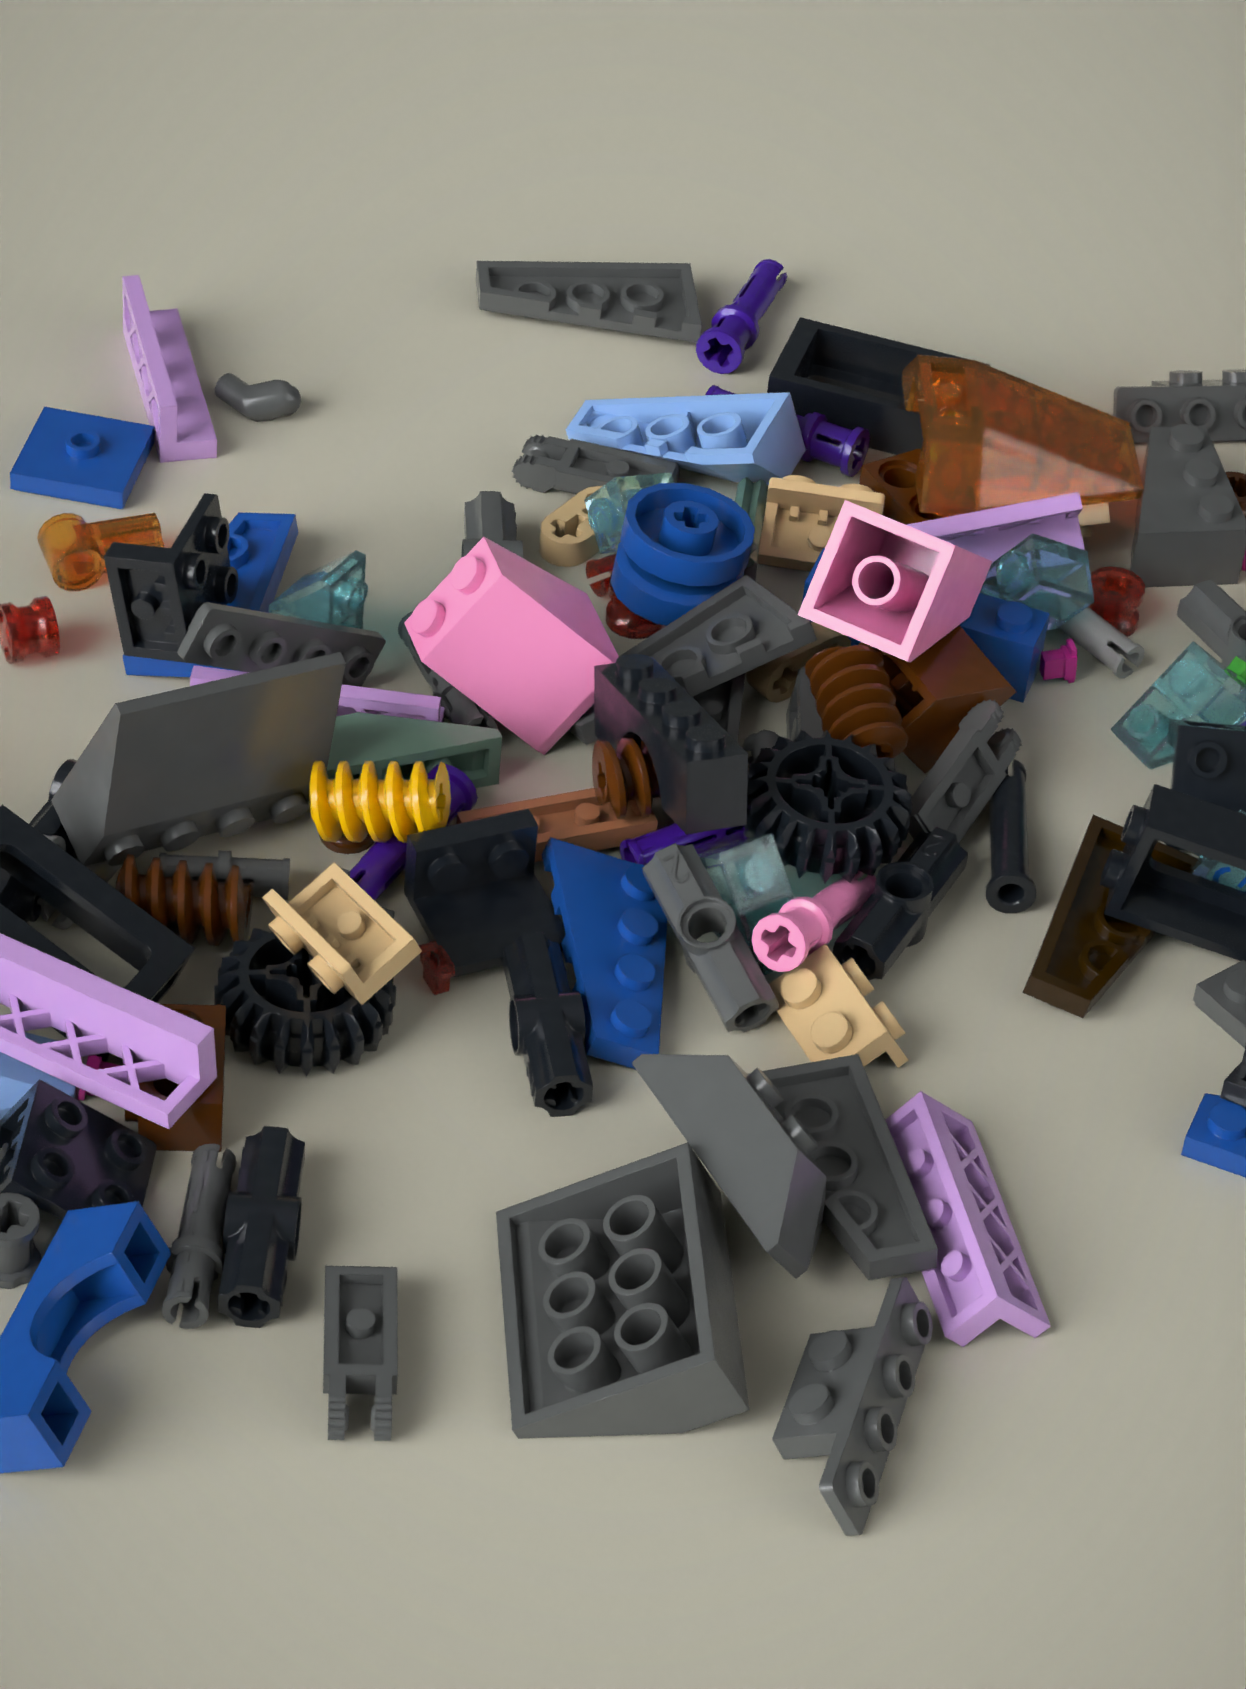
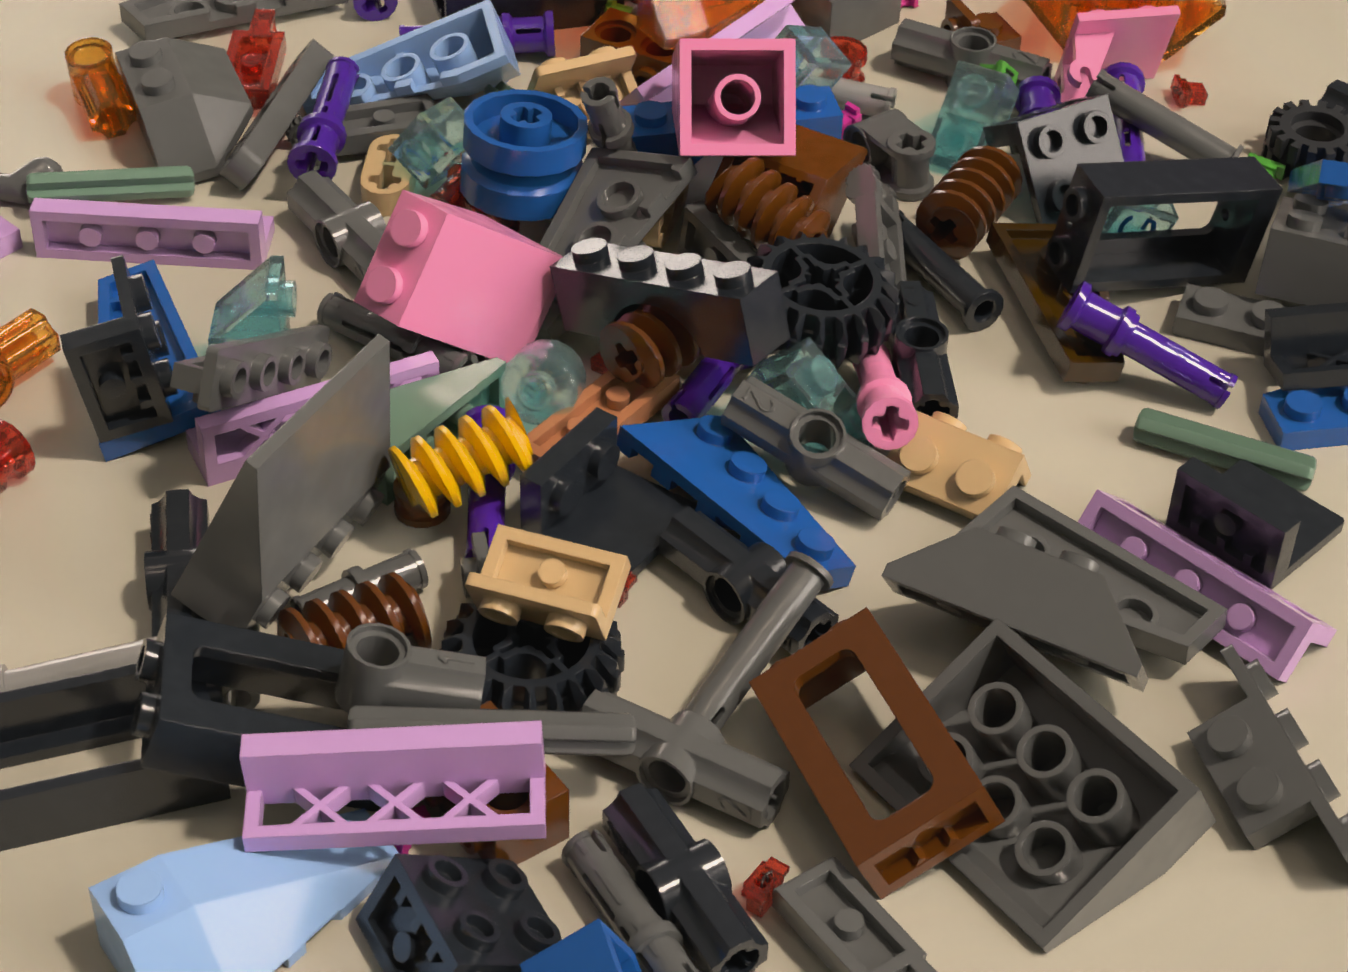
camera: 30 degrees left, 0 degrees up
(141, 939) = (387, 671): none -> dark grey piece
(233, 1044) = (562, 730): none -> dark grey axle
(324, 1255) = (760, 885): none -> clear red piece
(326, 431) = (112, 184): none -> sand green axle
(326, 492) = (150, 232): none -> lavender fence
(354, 1133) = (691, 760): none -> dark grey piece
(391, 335) = (99, 86): none -> clear orange piece
(446, 383) = (185, 102): none -> dark grey wedge
(486, 1072) = (760, 638): none -> dark grey pin
(521, 424) = (276, 115): none -> dark grey beam
(527, 767) = (543, 380): none -> clear light blue head
(529, 1261) = (923, 831): none -> reddish brown piece
(538, 459) = (322, 132): none -> dark purple pin
(551, 368) = (258, 56): none -> clear red hinge
(764, 556) = (609, 123): none -> dark grey pin
(1068, 1195) = (1249, 519): none -> black bracket
(1074, 707) = (897, 152): none -> dark grey piece
(1094, 781) = (969, 200): none -> reddish brown piece
(1099, 968) = (1121, 332): none -> dark purple pin
(1117, 1125) = (1222, 447): none -> sand green axle

